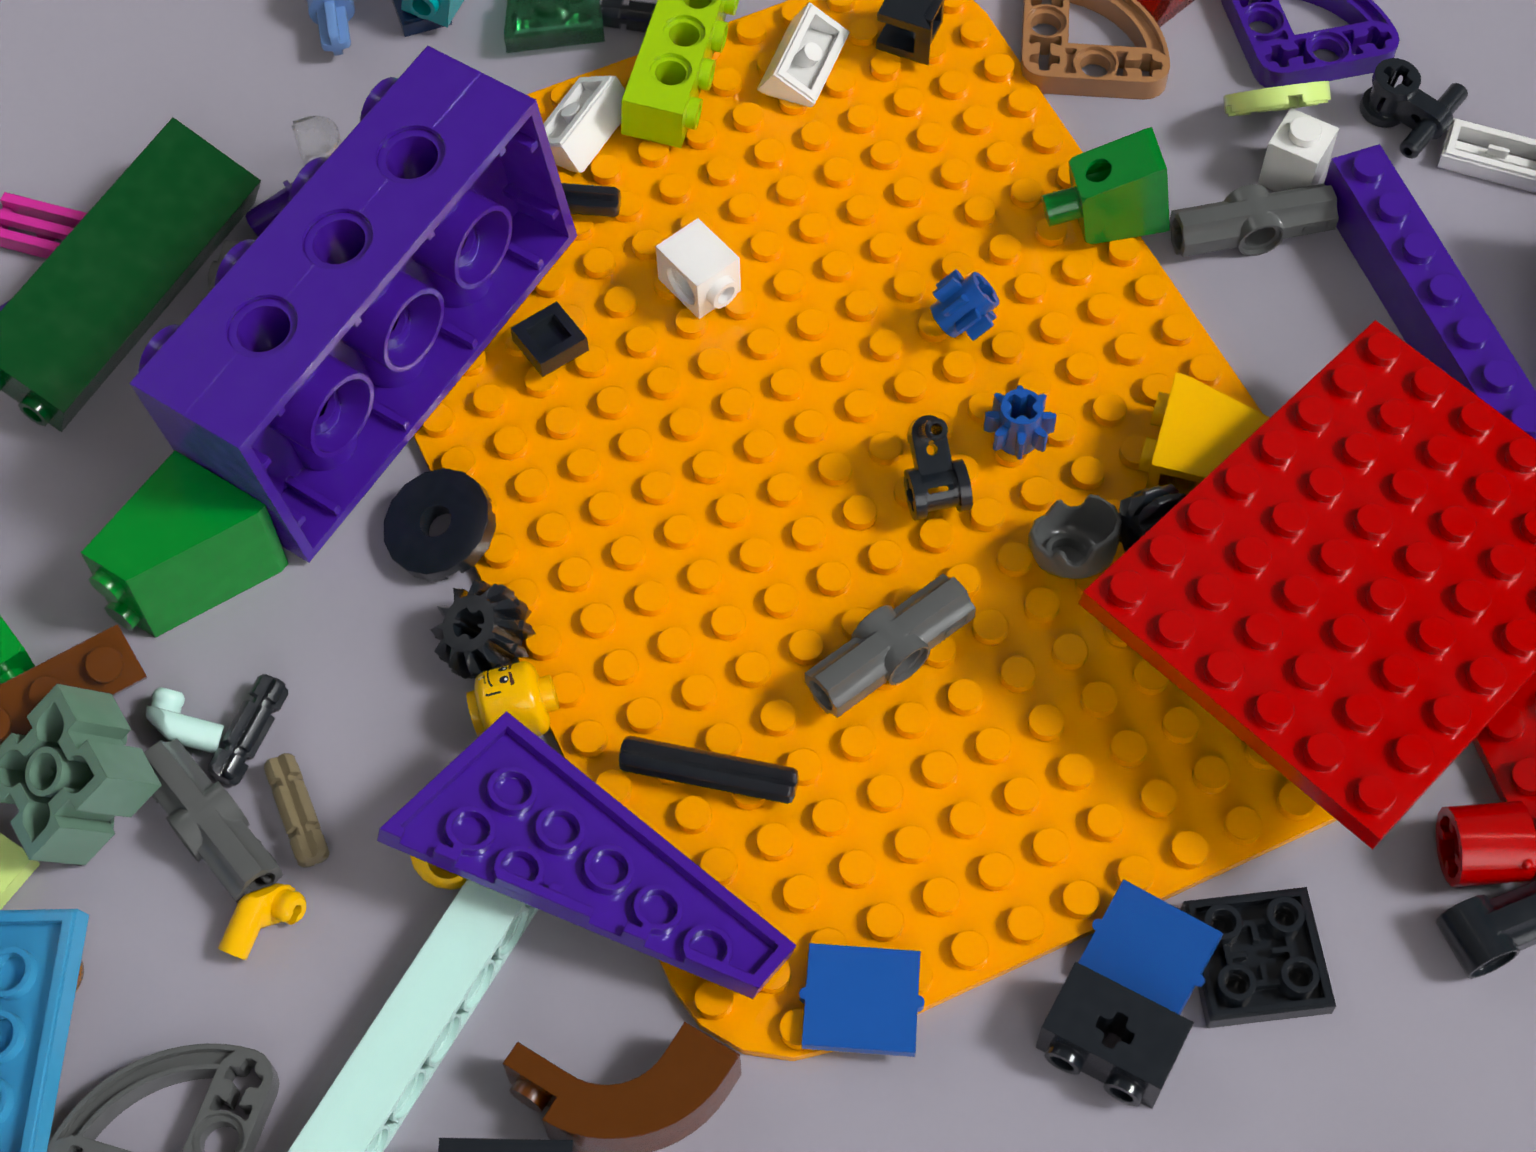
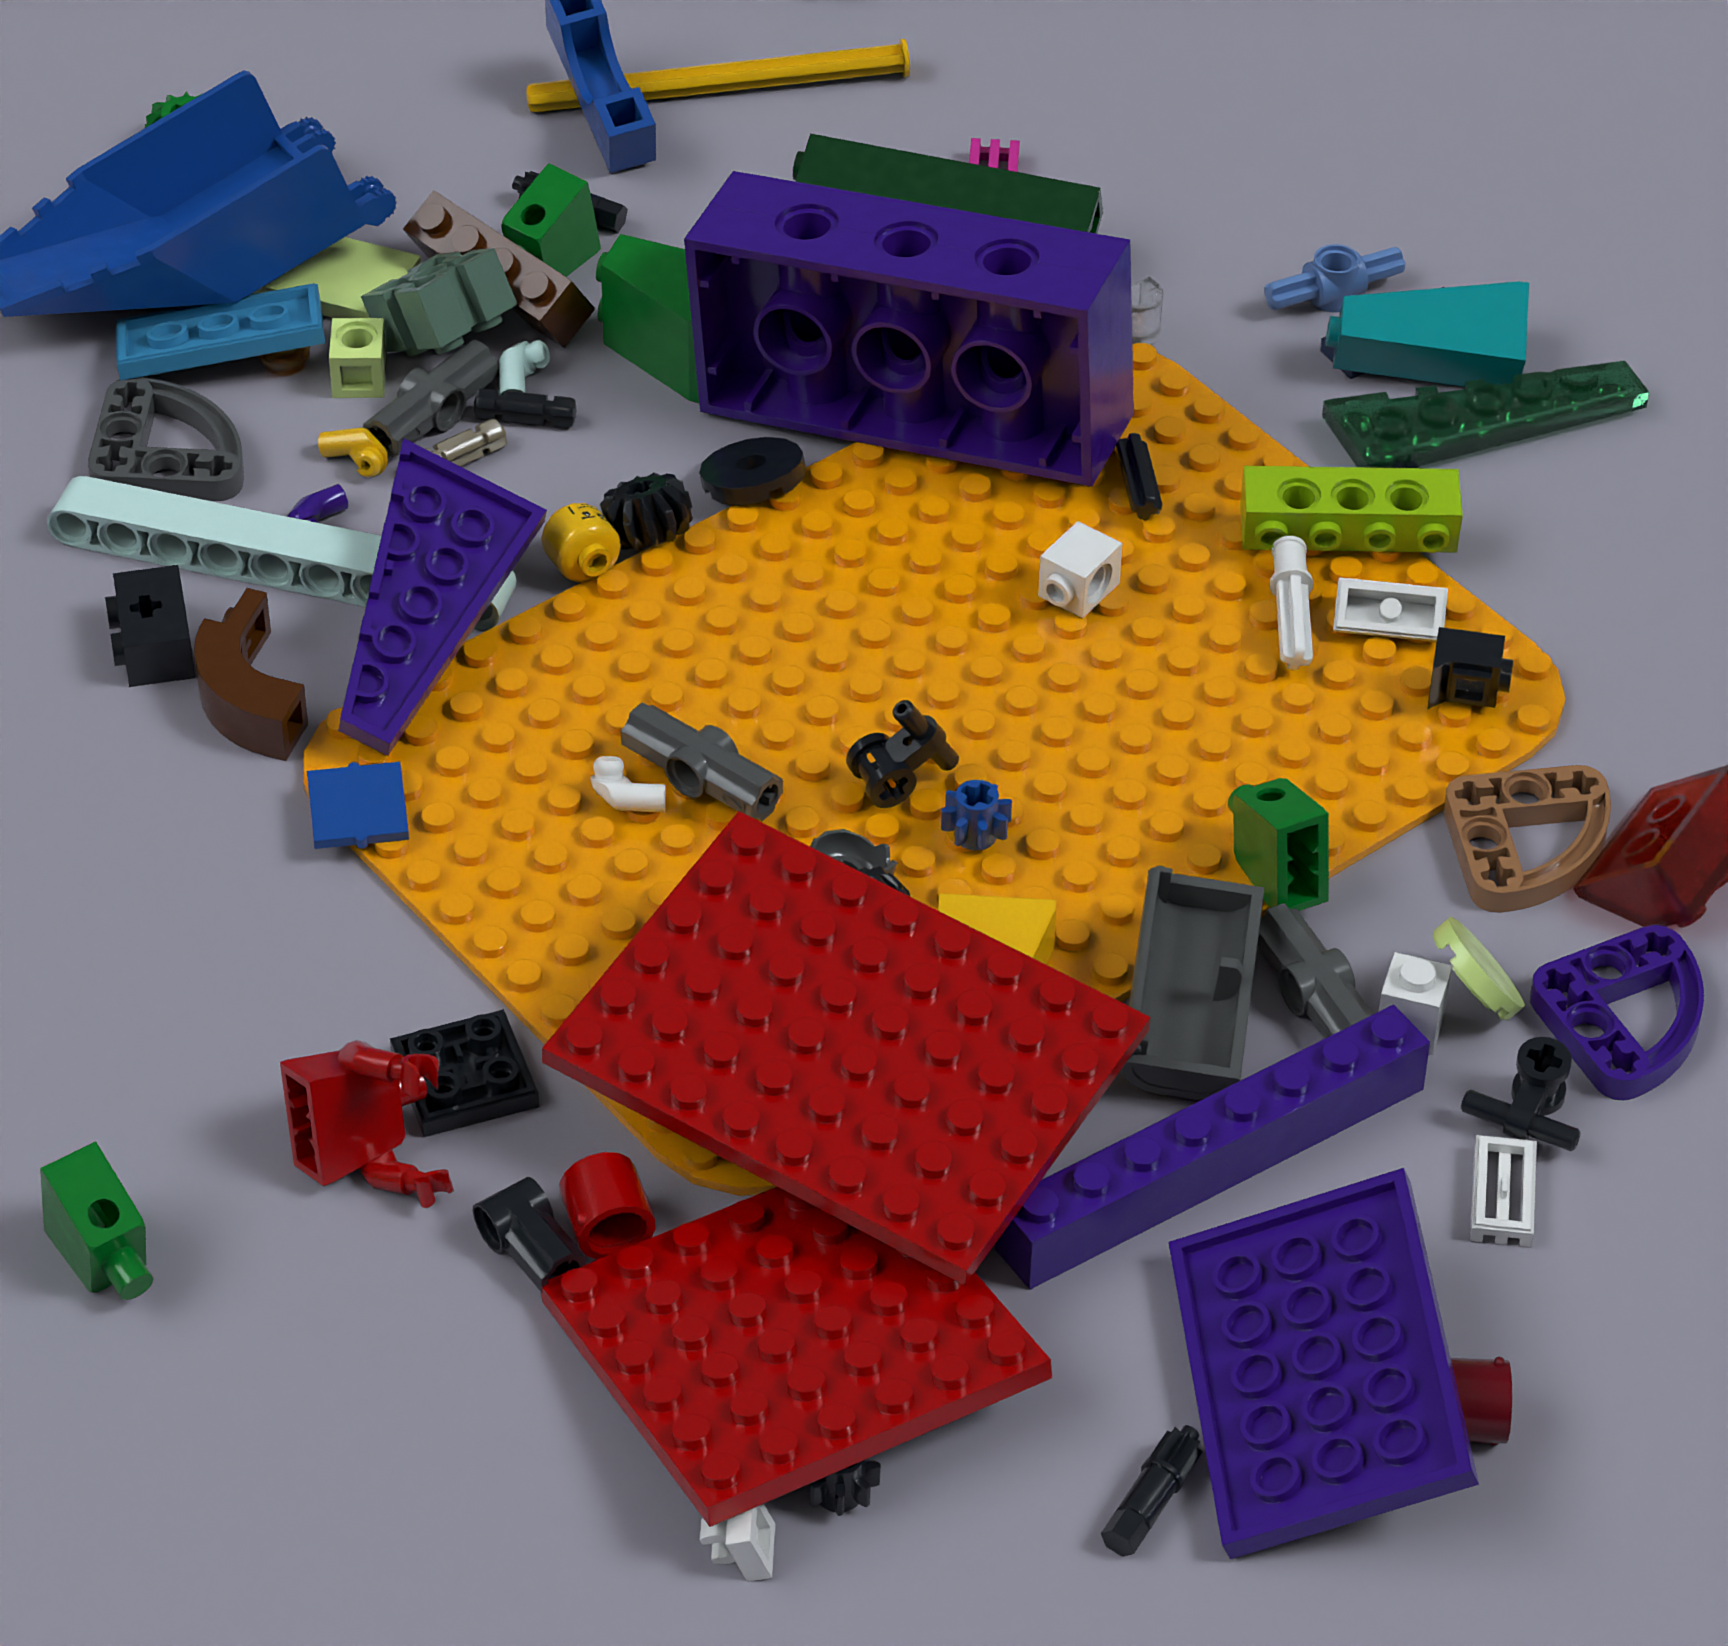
camera: 75 degrees right, 15 degrees down
(125, 902) = (358, 358): none -> yellowish green brick
(347, 986) = (320, 504): none -> dark purple arm
(549, 339) = (966, 490): black plate -> none
(584, 121) = (1220, 467): white slope -> none
(708, 769) = (548, 672): black axle -> none
(780, 121) = (1292, 587): none -> white axle
(897, 736) = (621, 792): none -> white arm
(964, 305) = (1086, 754): blue gear -> none
(1084, 1016) = (357, 969): black brick -> none
(1151, 947) = (444, 985): blue piece -> none
(1264, 293) = (1193, 983): none -> dark grey container
(1346, 1067) = (350, 1116): none -> red torso

